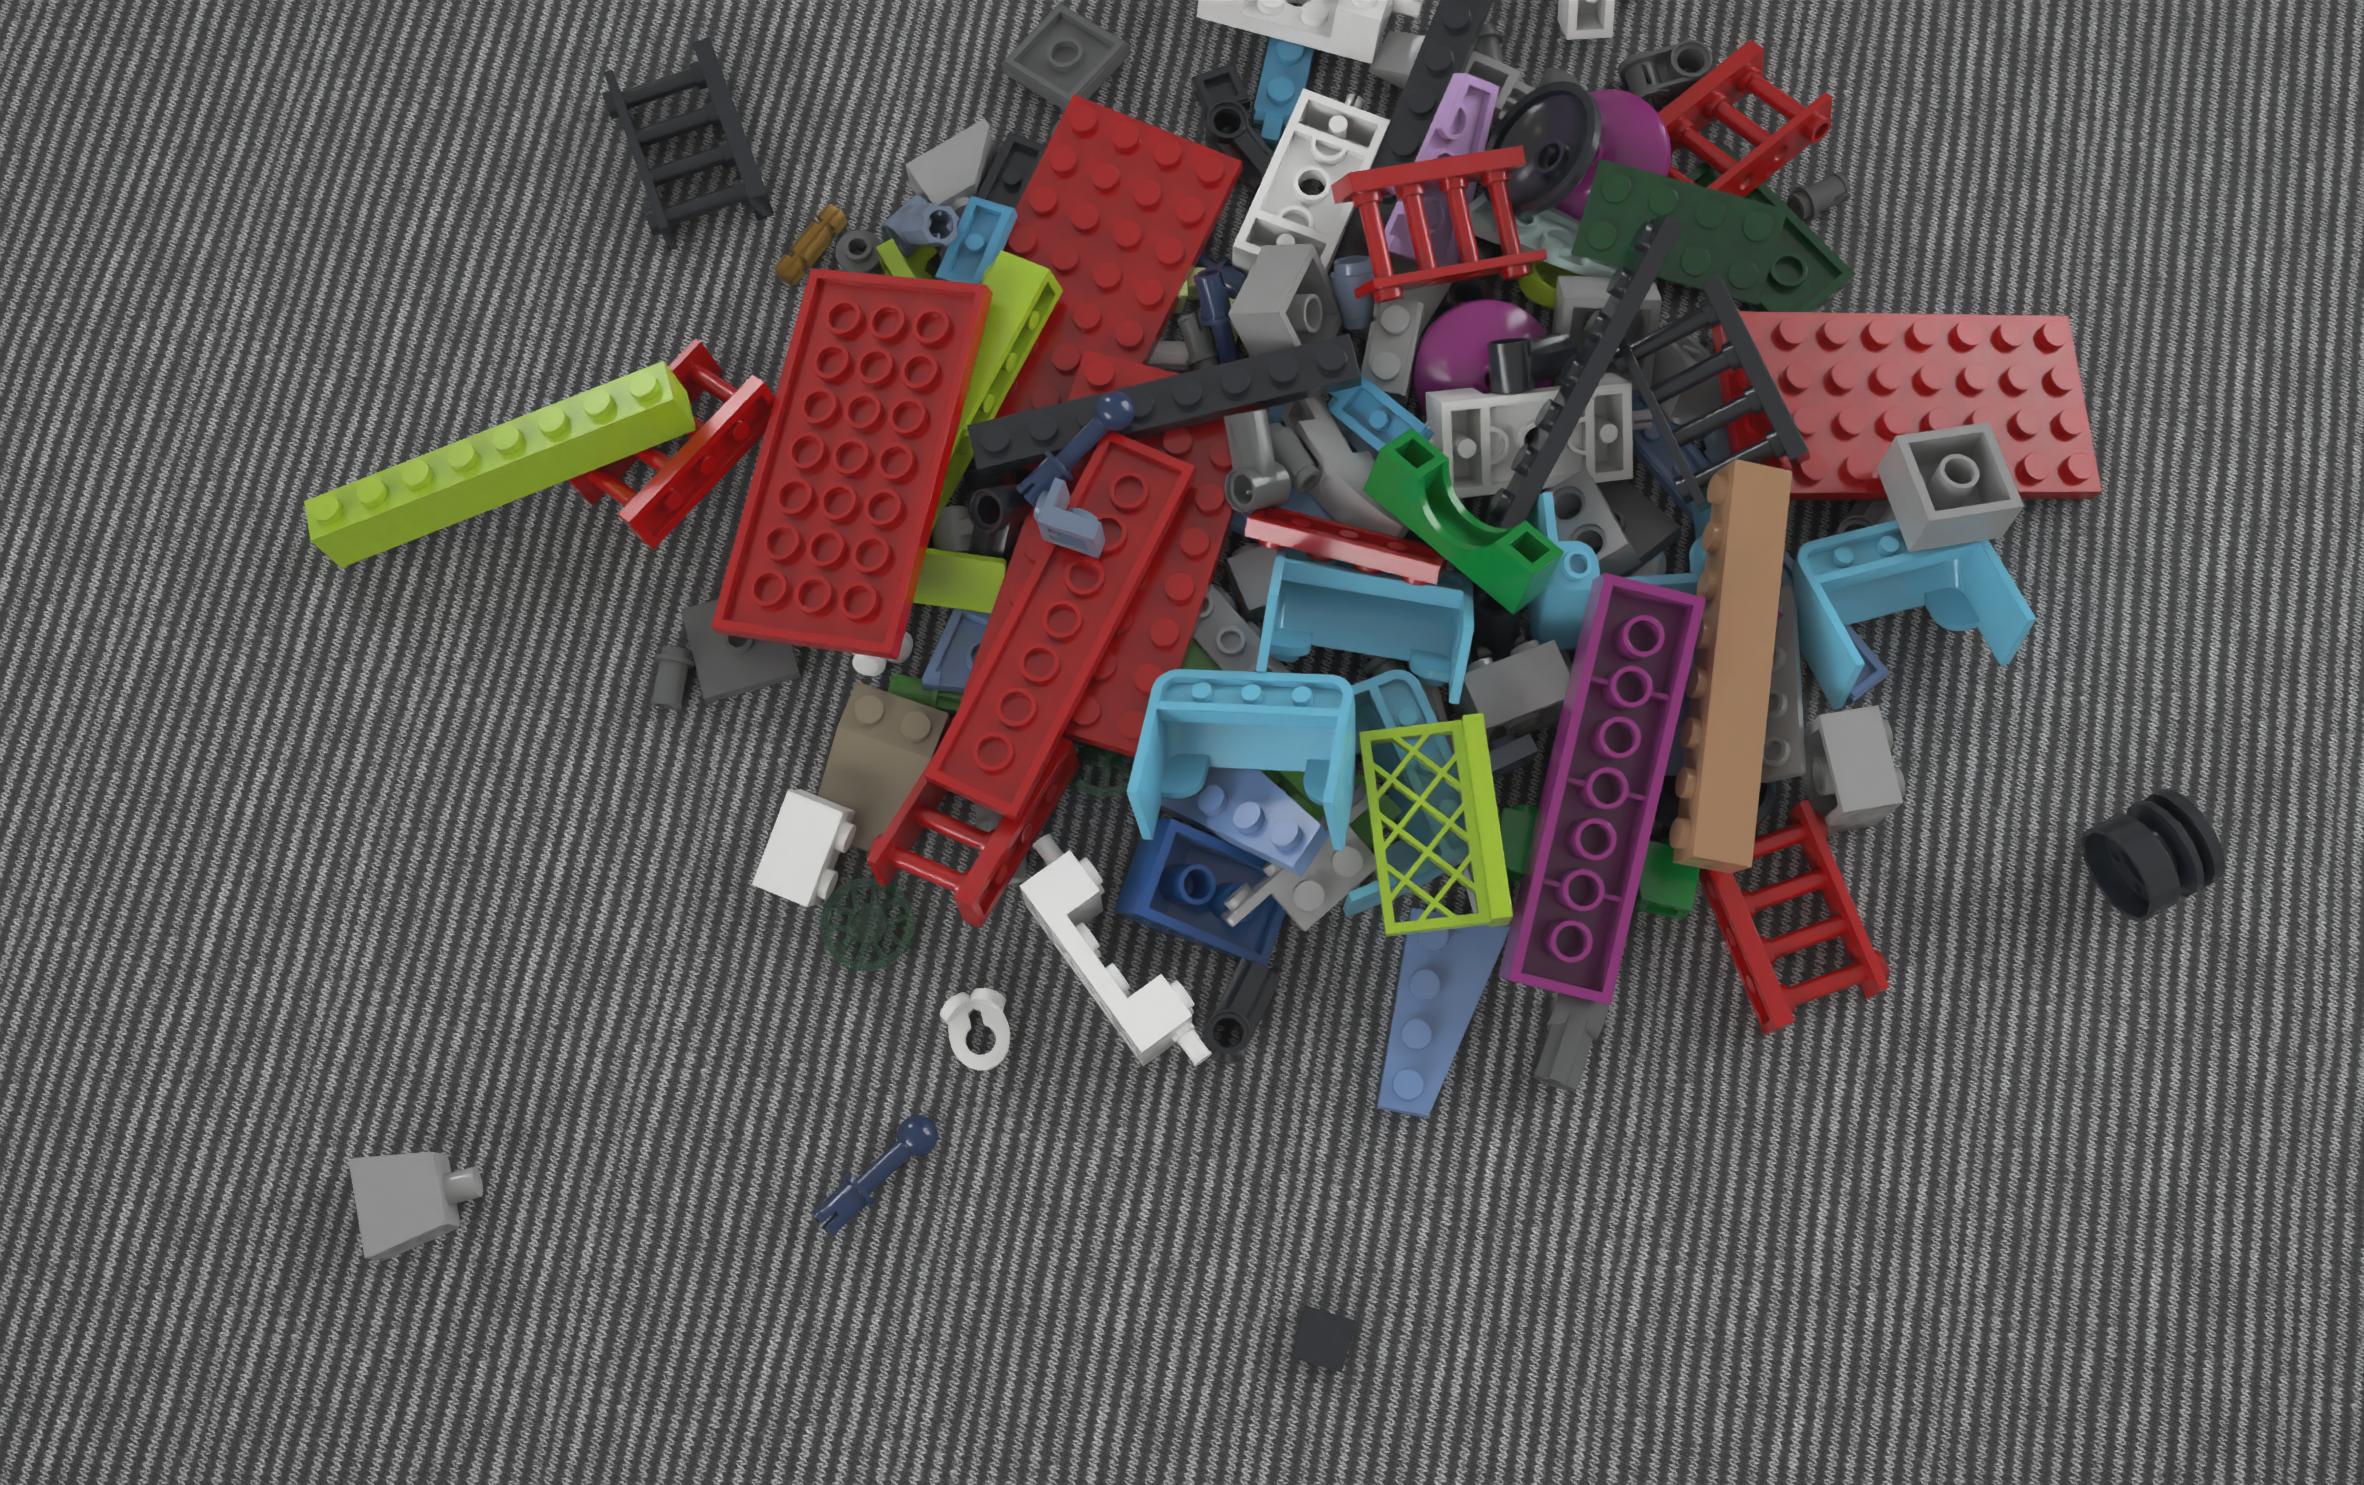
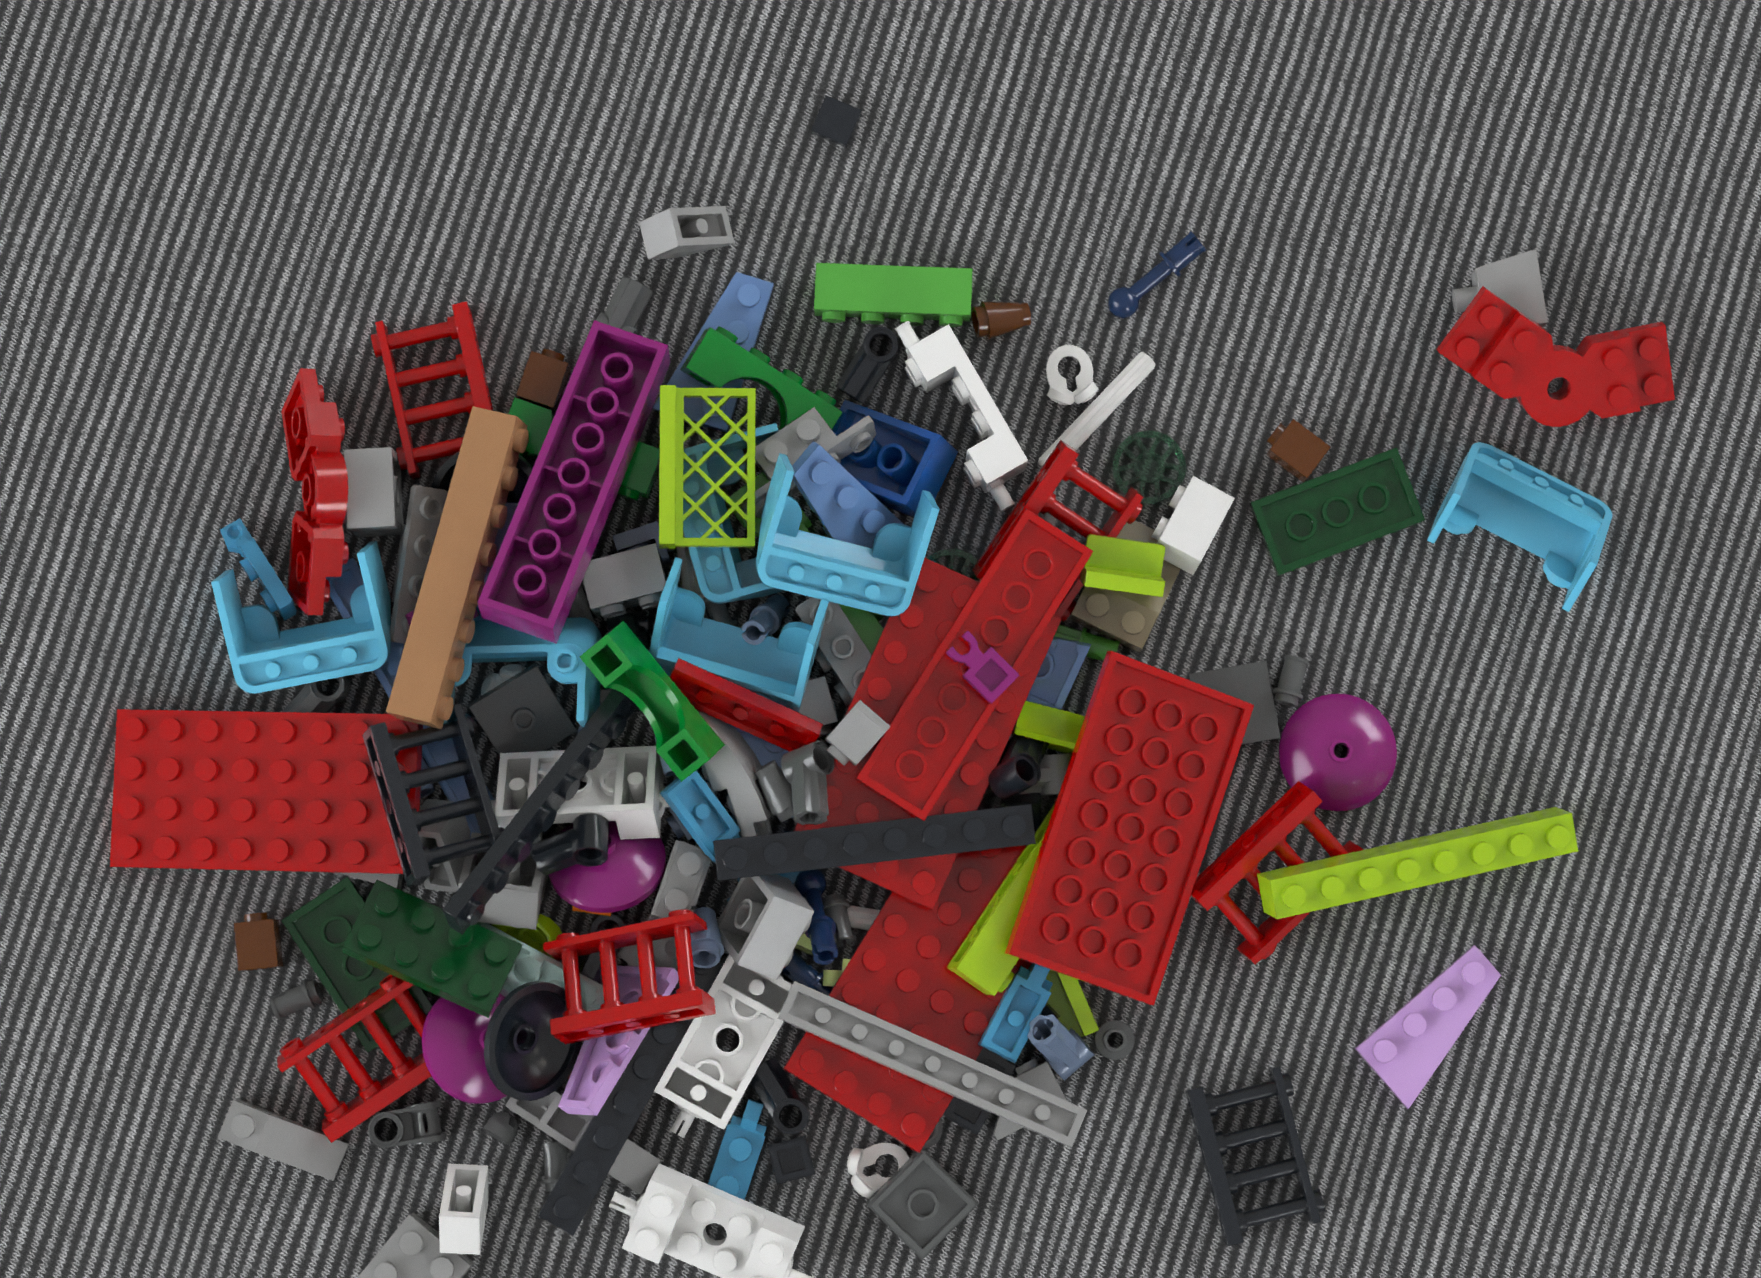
camera: 175 degrees left, 10 degrees up
(339, 1080) = (1517, 358): none -> red plate
(364, 918) = (1529, 512): none -> medium azure windscreen
(491, 306) = (1423, 1031): none -> lavender wing
(621, 891) = (1337, 512): none -> dark green plate
(626, 627) = (1309, 755): none -> magenta dish
(676, 962) = (1296, 449): none -> reddish brown brick
(810, 244) = (1155, 1052): pearl gold axle -> none
(883, 769) = (1124, 565): none -> lime panel
(936, 989) = (1104, 404): none -> white axle
(1047, 603) = (987, 672): none -> magenta plate
(1069, 176) = (932, 1064): none -> light grey plate
(1072, 528) = (958, 729): sand blue bracket -> none
(1077, 1092) = (999, 318): none -> reddish brown cone
(1112, 413) = (918, 828): dark blue pin -> none
(1134, 74) = (861, 1158): none -> white piece
(1199, 515) = (856, 734): none -> light grey slope
(1220, 1108) = (893, 293): none -> bright green brick
(1338, 652) = (765, 619): none -> sand blue pin
(1433, 980) = (719, 360): none -> green arch
(1501, 1160) = (686, 231): none -> light grey slope
(1593, 524) = (537, 712): light grey brick -> none
(1655, 944) = (544, 379): none -> reddish brown brick
(1813, 50) = (282, 1139): none -> light grey slope
(1876, 247) = (258, 942): none -> reddish brown brick
(1910, 708) = (315, 458): none -> red plate
(1949, 486) = (258, 695): light grey brick -> none
(1967, 670) = (257, 566): none -> dark azure hinge
(2153, 854) = (151, 400): black wheel -> none

